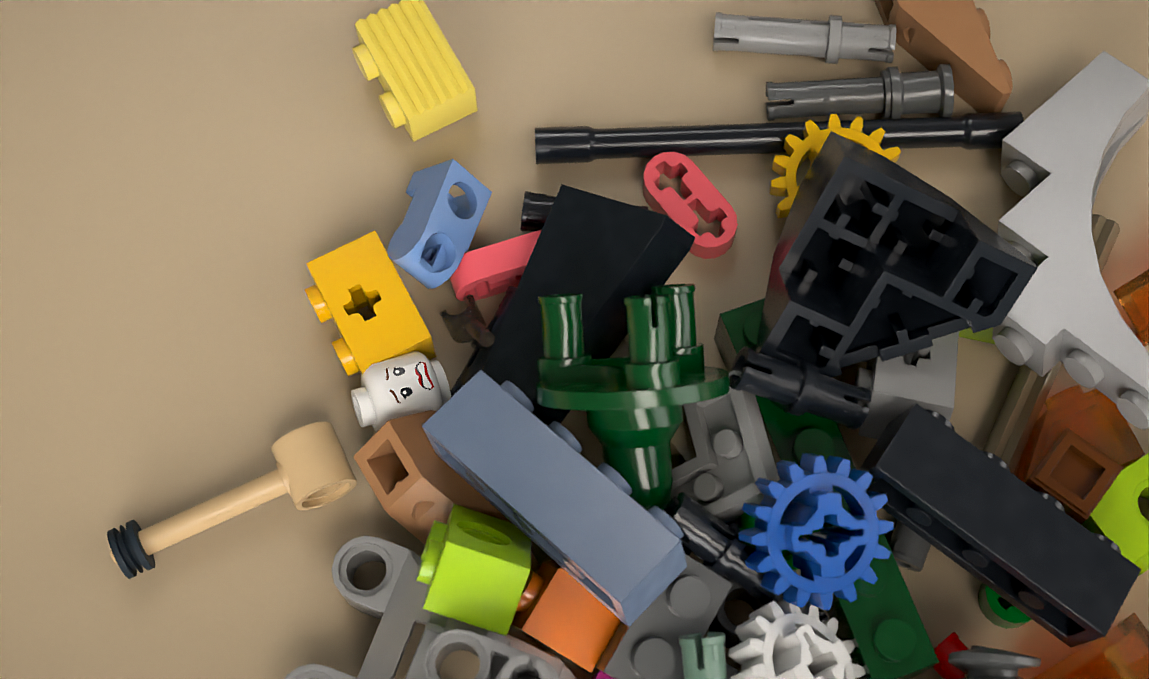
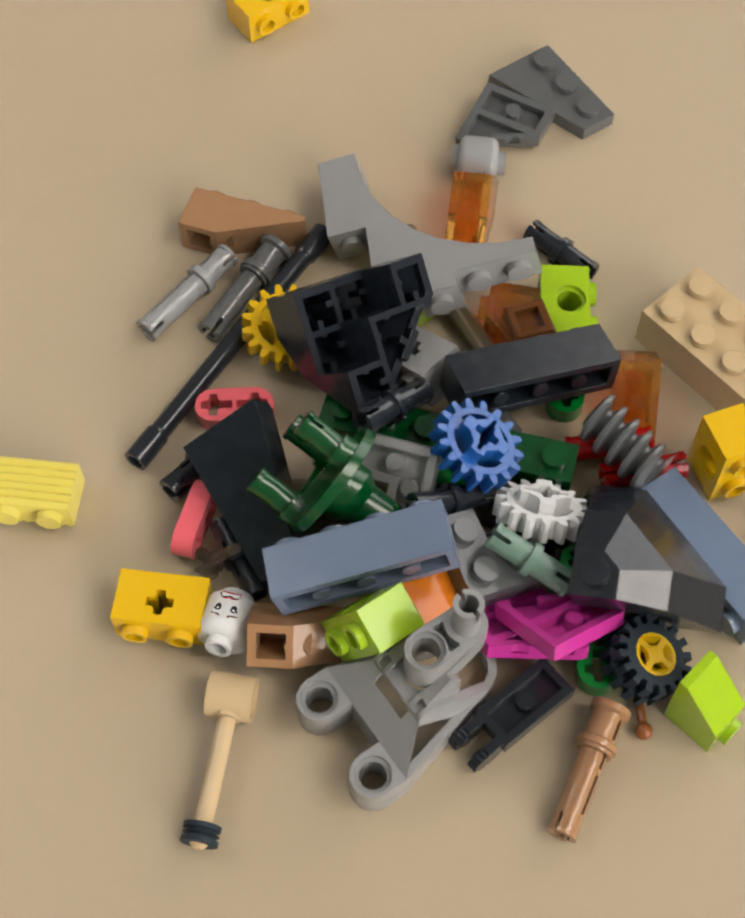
camera: 55 degrees left, 10 degrees down
(437, 224) = (143, 532): medium blue leg -> none

